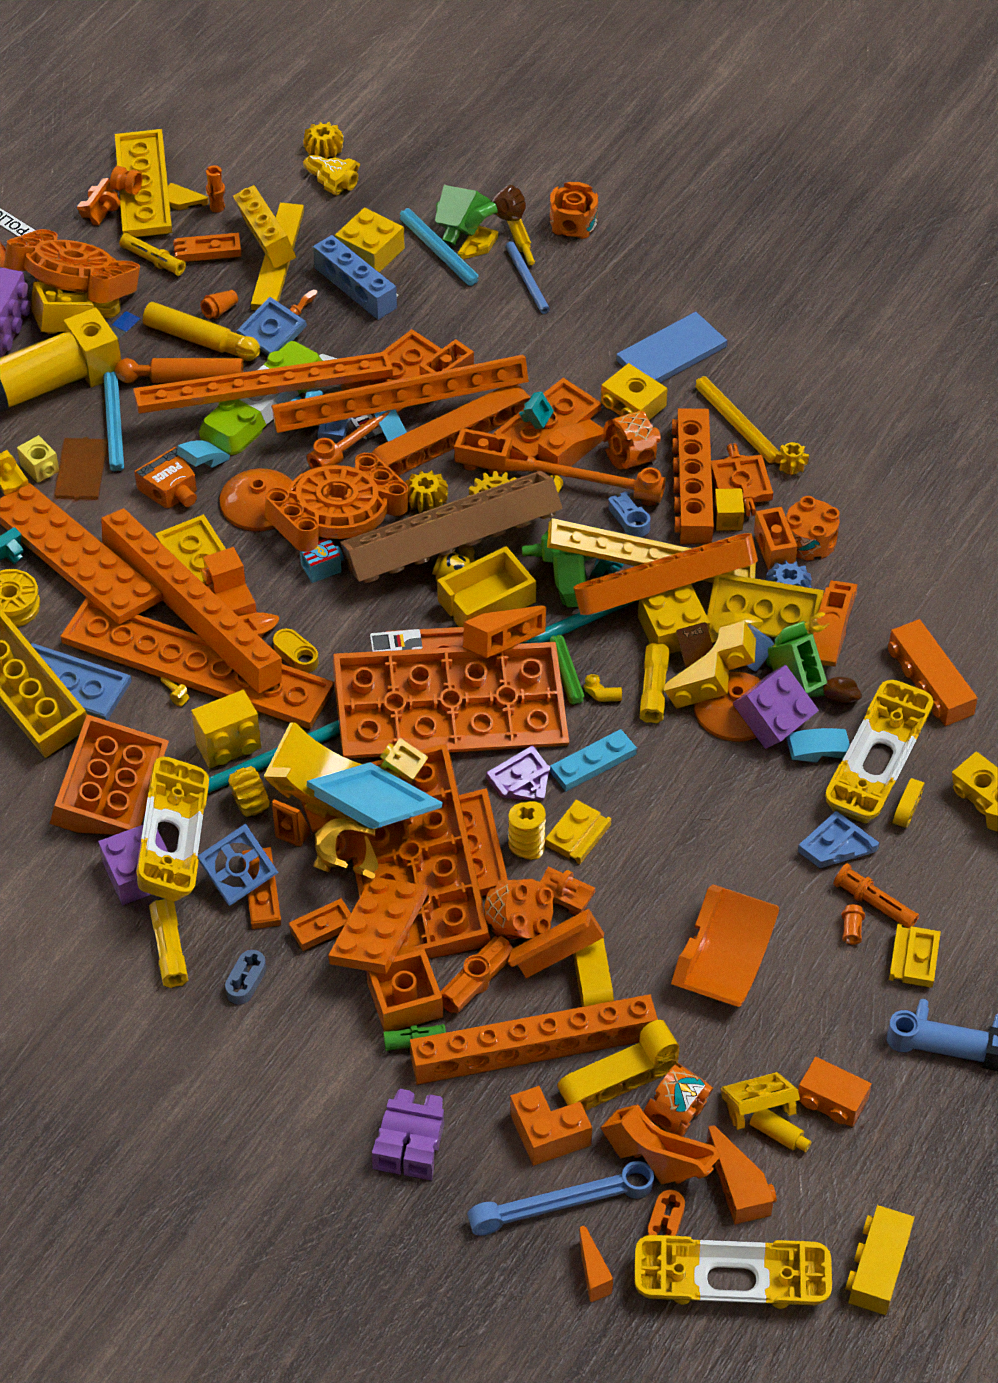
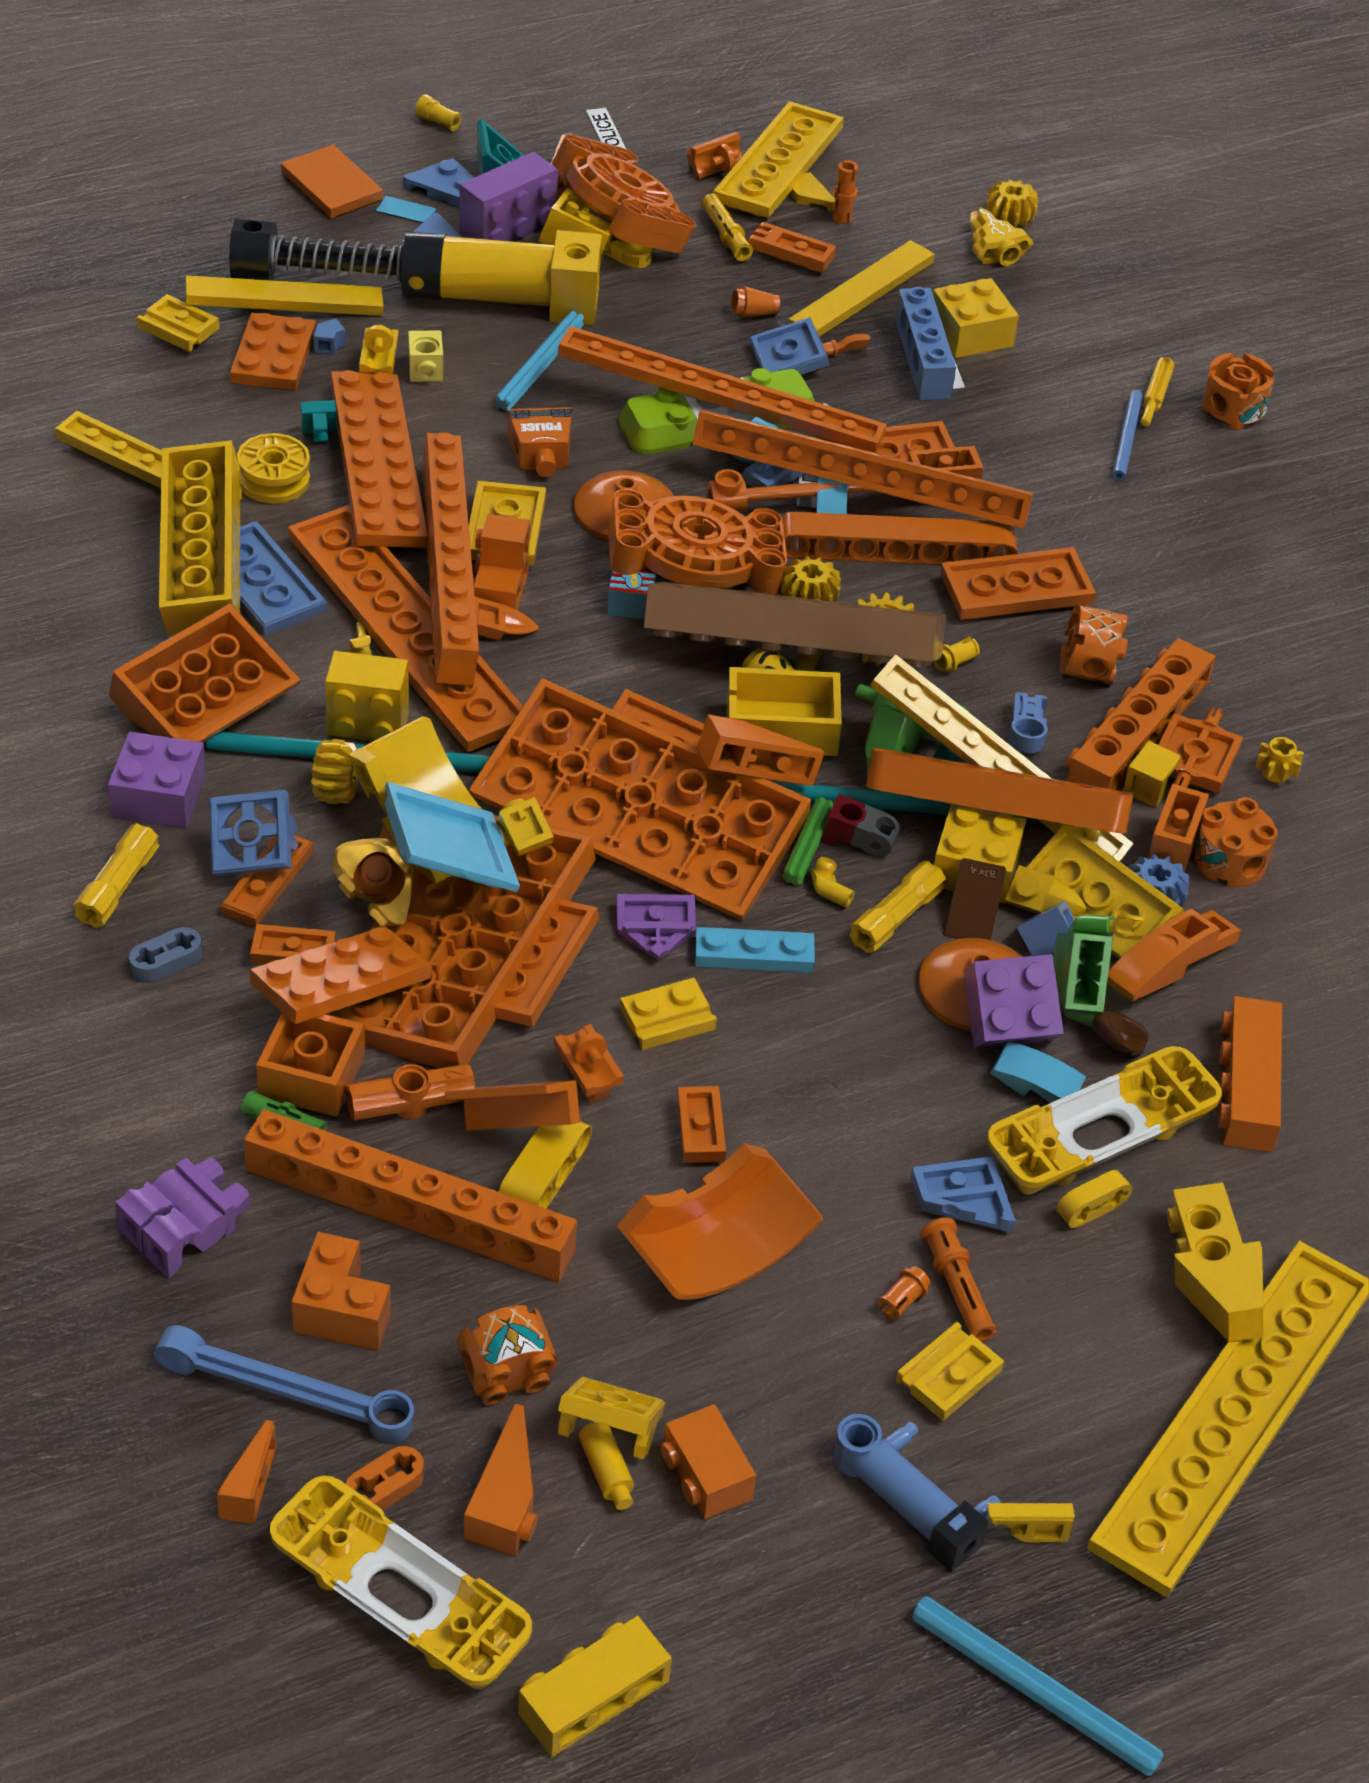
camera: 30 degrees right, 5 degrees down
(81, 468) = (464, 389): clear orange piece -> none
(124, 323) = (630, 281): blue sticker -> none
(126, 180) = (755, 142): orange wheel -> none
(177, 369) = (598, 320): orange piece -> none
(177, 797) = (241, 727): yellow piece -> none
(200, 331) = (707, 318): yellow piece -> none
(202, 452) = (594, 424): medium azure slope -> none
(264, 226) = (865, 249): yellow brick -> none
(289, 823) = (345, 820): orange slope -> none
(291, 646) = (522, 661): yellow piece -> none
(396, 640) = (629, 704): sticker -> none
(439, 247) = (1051, 360): medium azure axle -> none
(465, 209) = (1107, 328): bright green torso -> none
(479, 243) = (1101, 377): yellow tile -> none
(496, 454) = (923, 582): orange bar -> none
(519, 908) = (512, 1045): orange brick -> none
(527, 830) = (599, 973): yellow piece -> none
(537, 410) = (1007, 561): teal tile -> none
(570, 443) = (1017, 617): orange slope -> none
(592, 642) = (861, 827): none -> leg
(623, 1070) = (475, 1287): yellow beam -> none
(633, 391) = (1145, 599): yellow brick -> none
(658, 890) = (701, 1124): none -> orange plate
(666, 1153) = (440, 1401): orange arch -> none
(674, 348) = (1234, 584): medium blue tile -> none
(710, 674) = (966, 925): yellow arch -> none
(737, 419) = (1249, 688): yellow axle -> none

